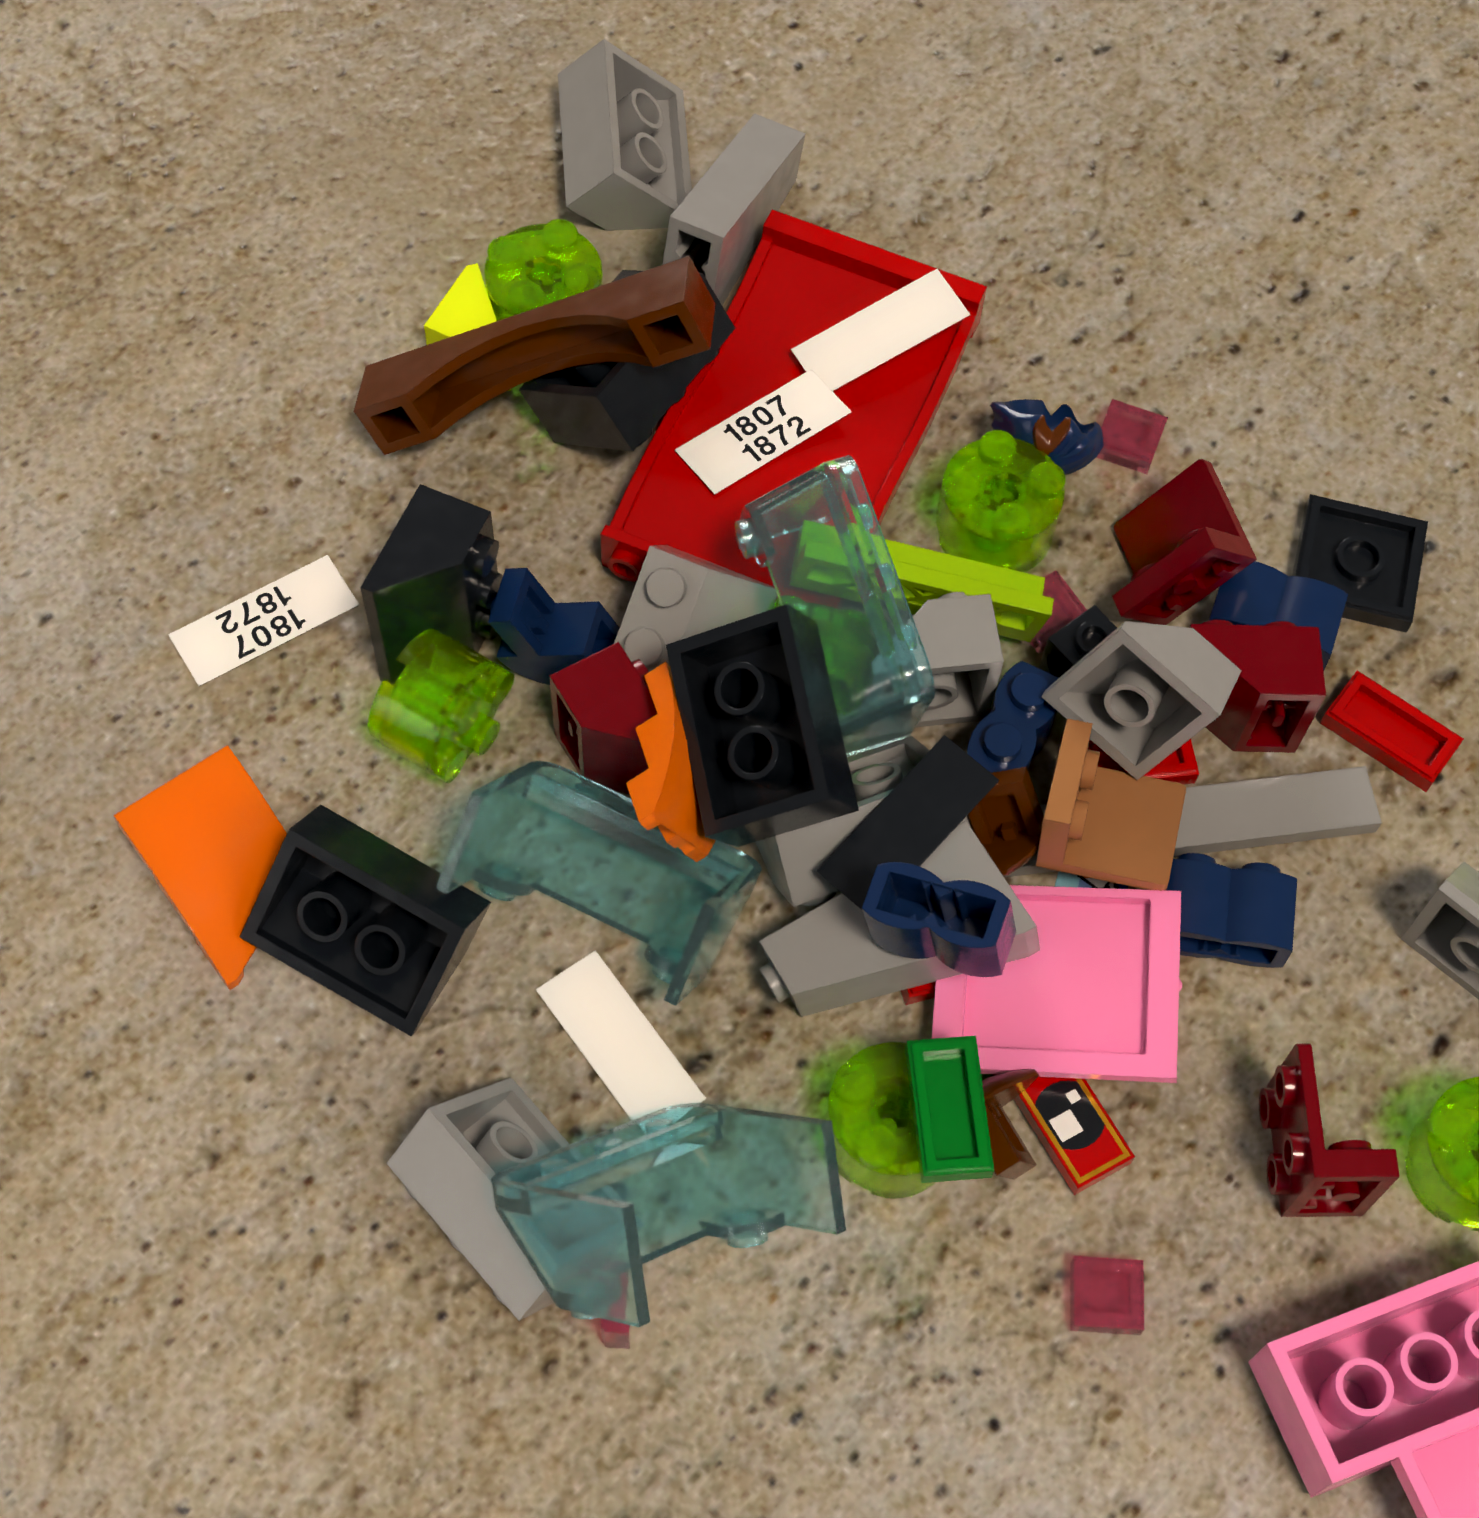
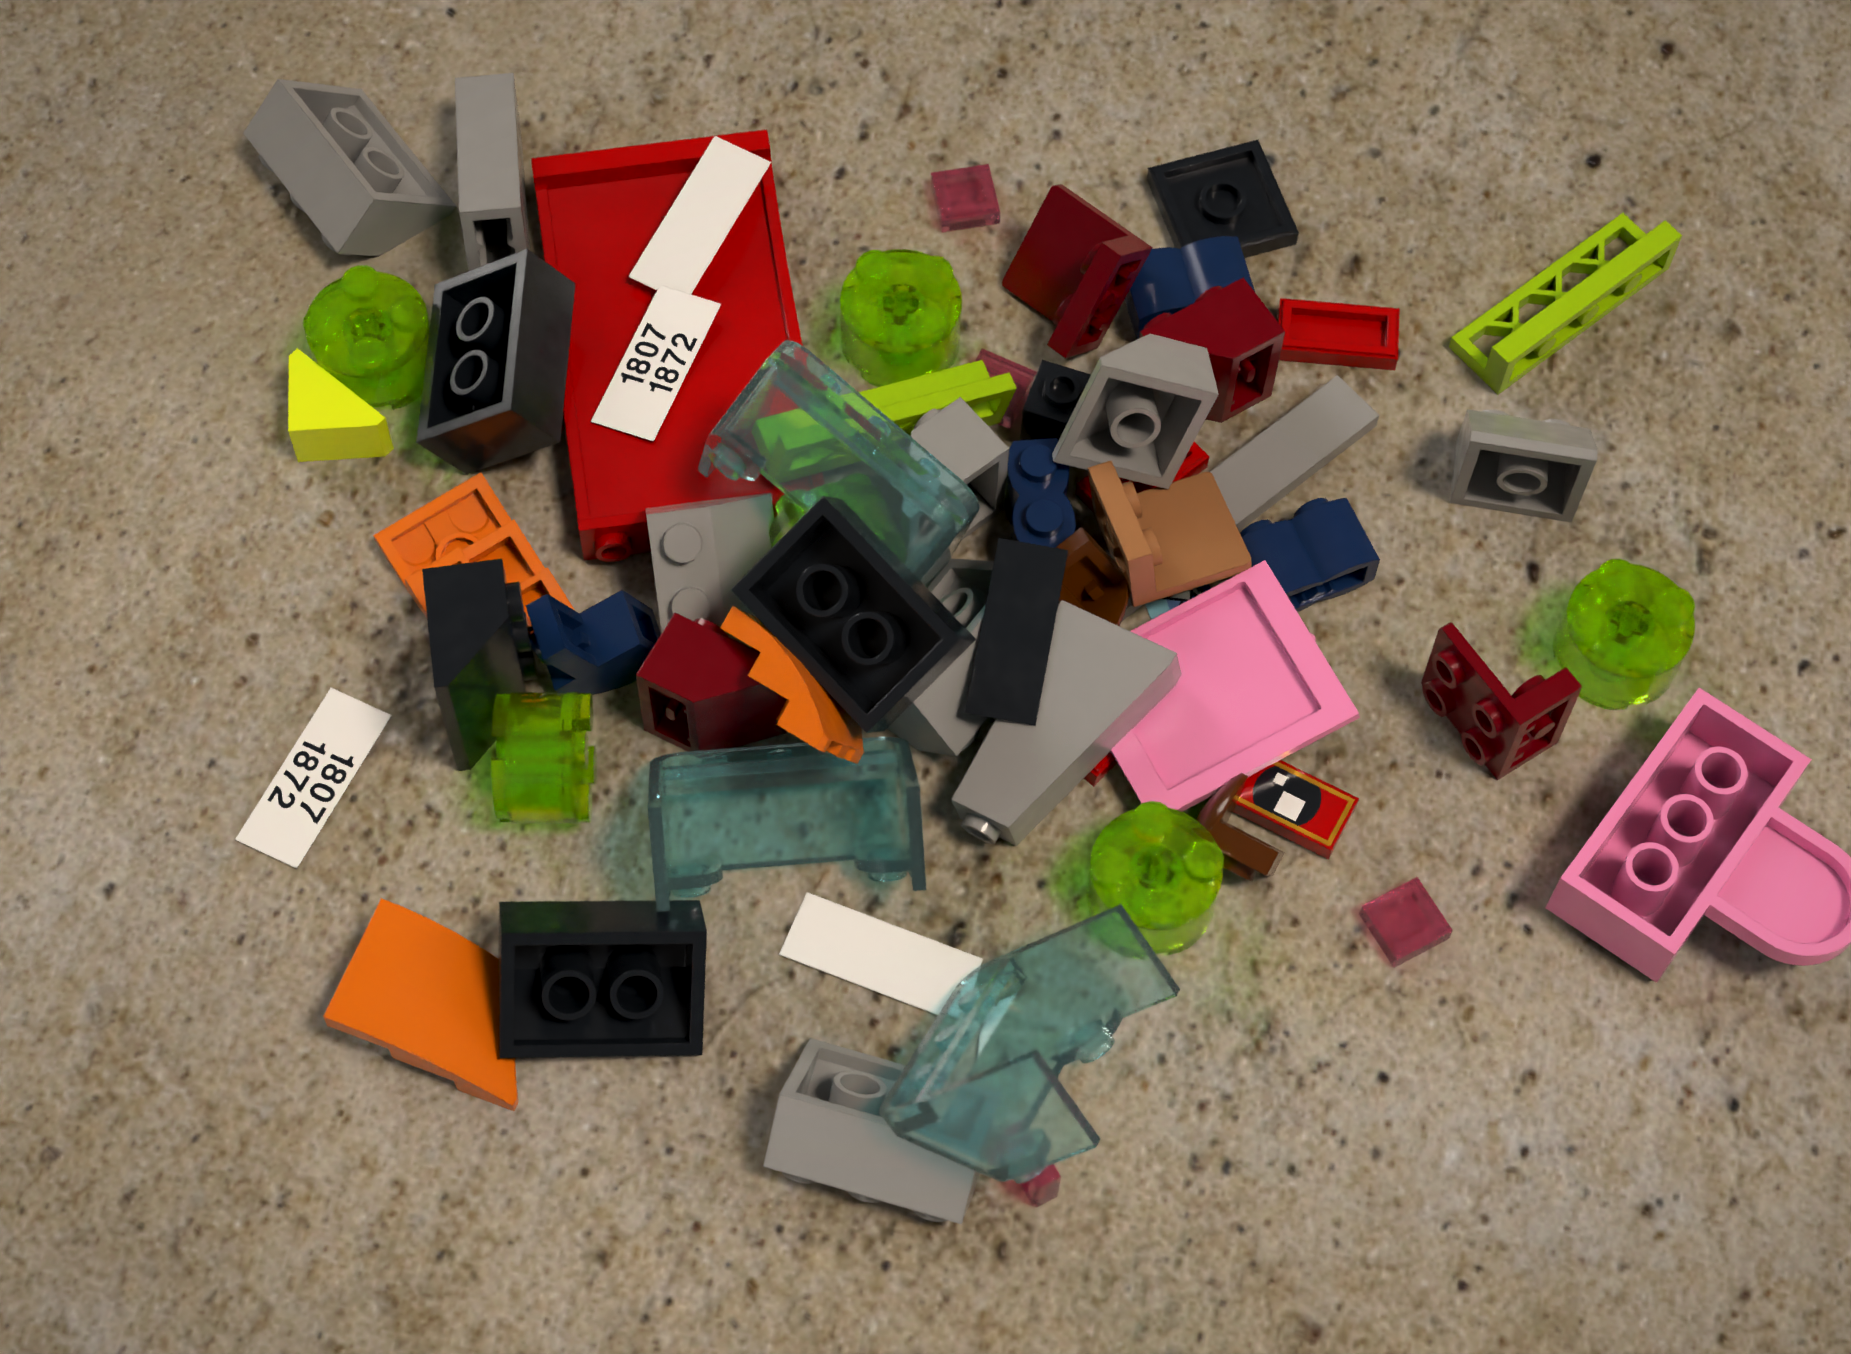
camera: 30 degrees left, 0 degrees up
(525, 501) = (460, 529): none -> orange slope
(631, 320) = (335, 485): reddish brown arch -> none
(949, 1109) = (1202, 842): green tile -> none
(955, 920) = (1117, 686): dark blue brick -> none
(1058, 435) = (906, 228): dark blue hair -> none

